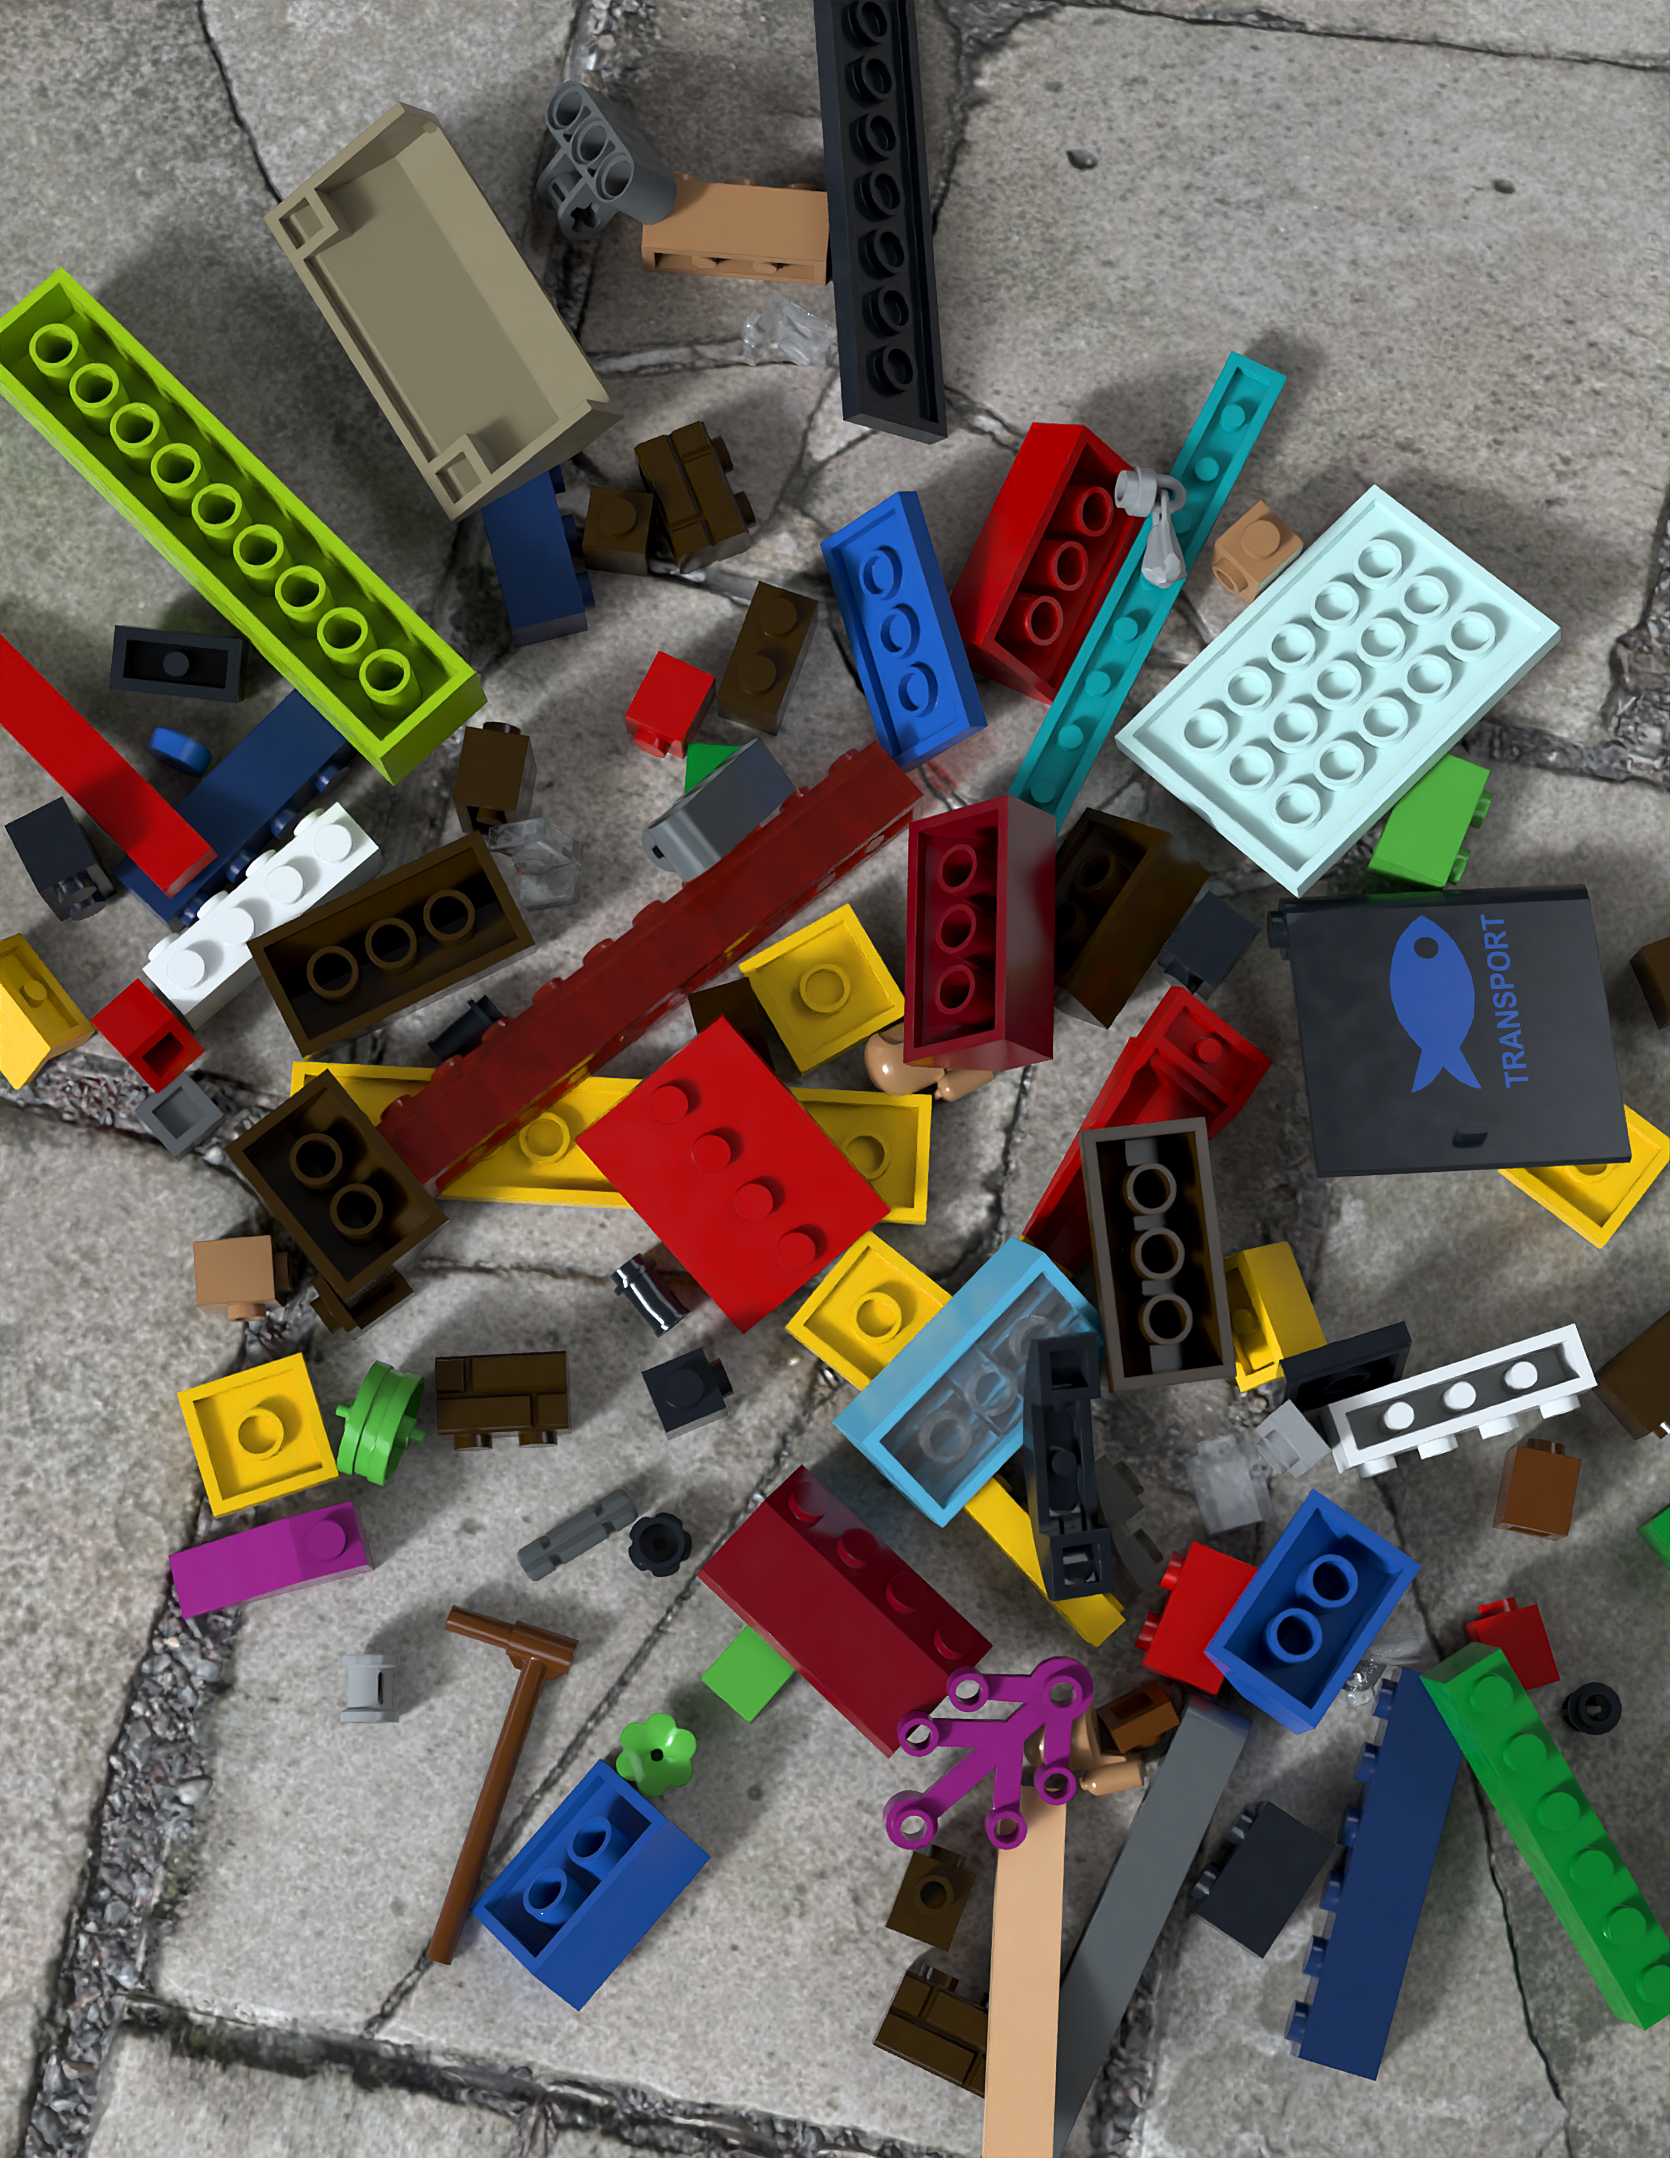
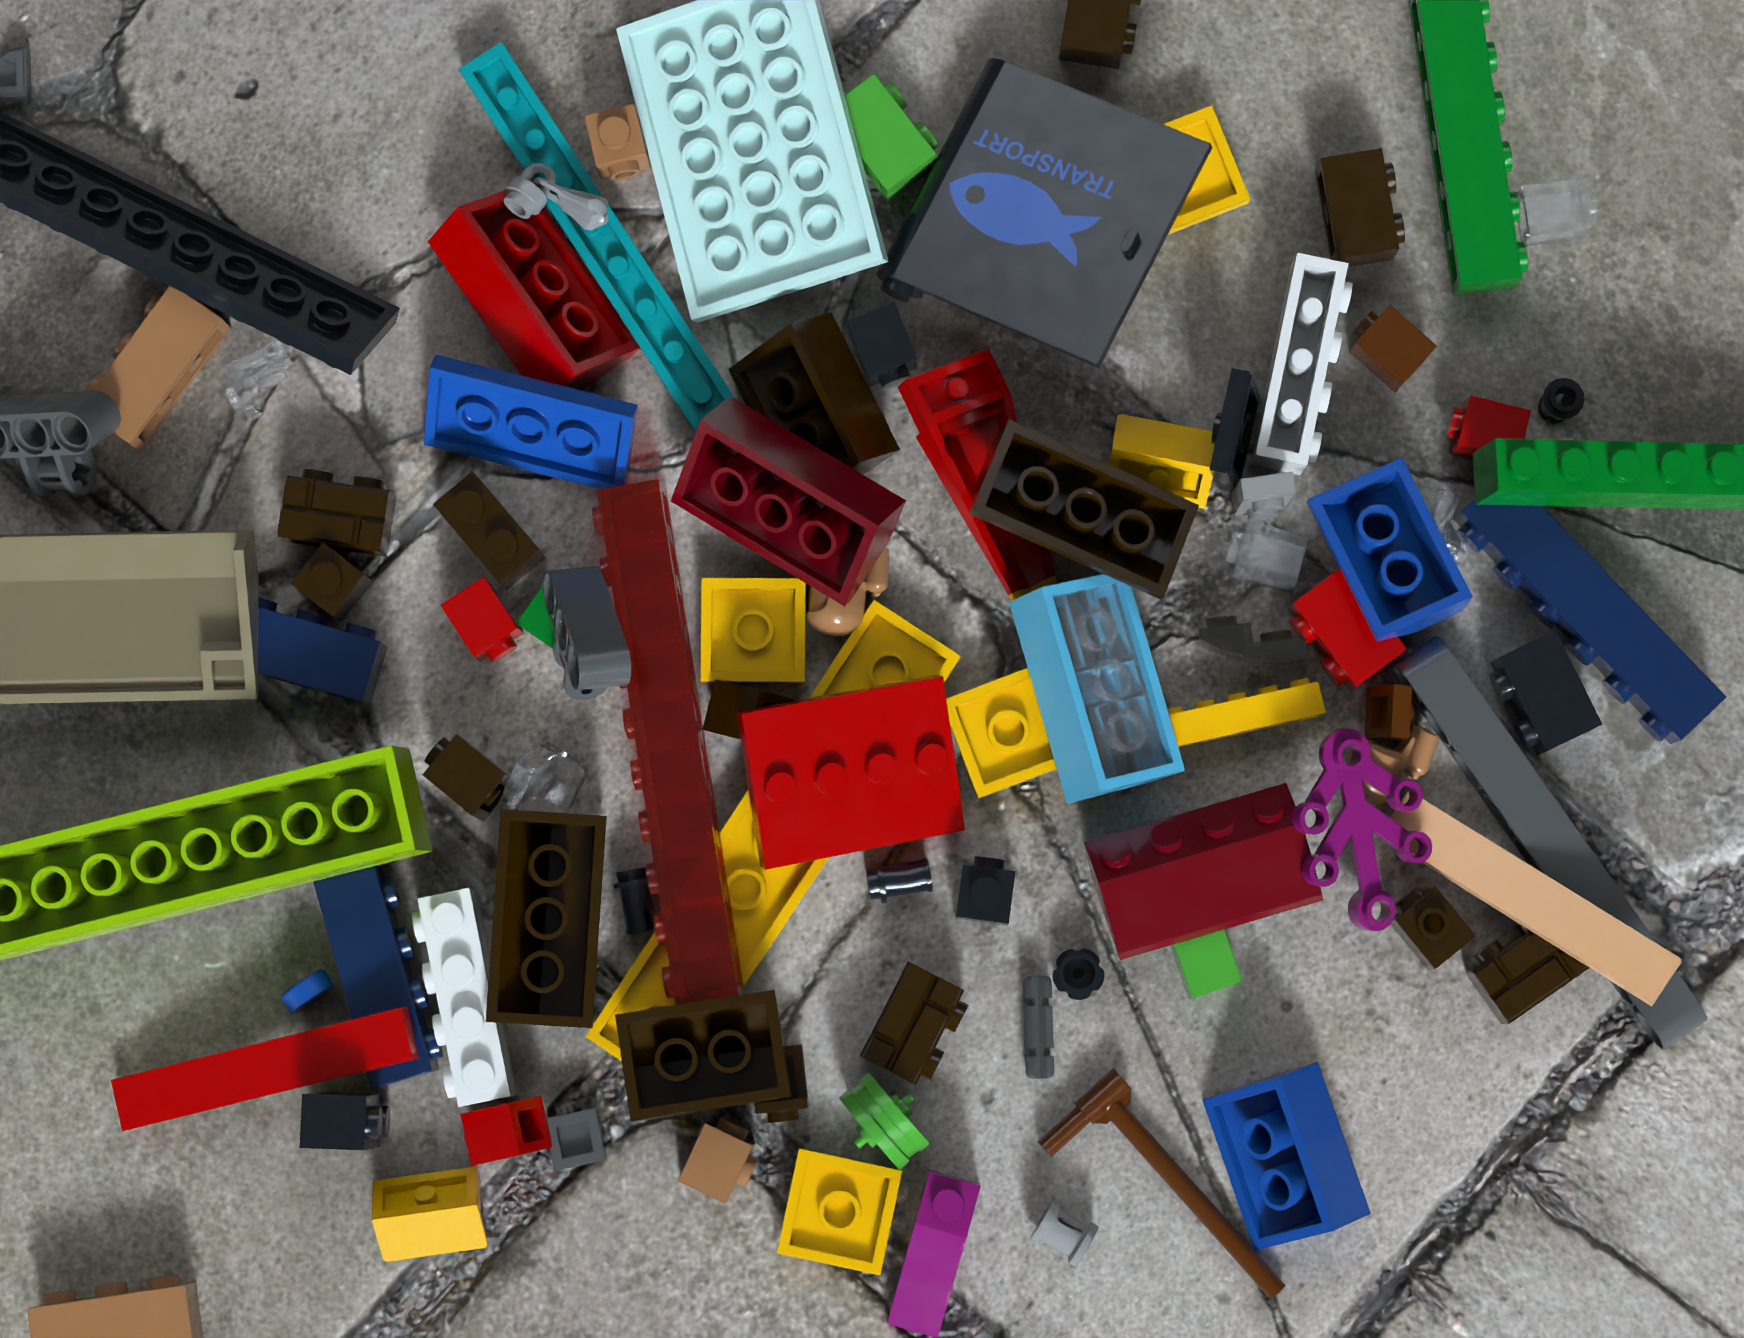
camera: 50 degrees left, 5 degrees up
(179, 663) = (243, 954): black brick -> none
(641, 1740) = (1239, 1055): bright green plant -> none
(1061, 1466) = (1190, 664): black slope -> none

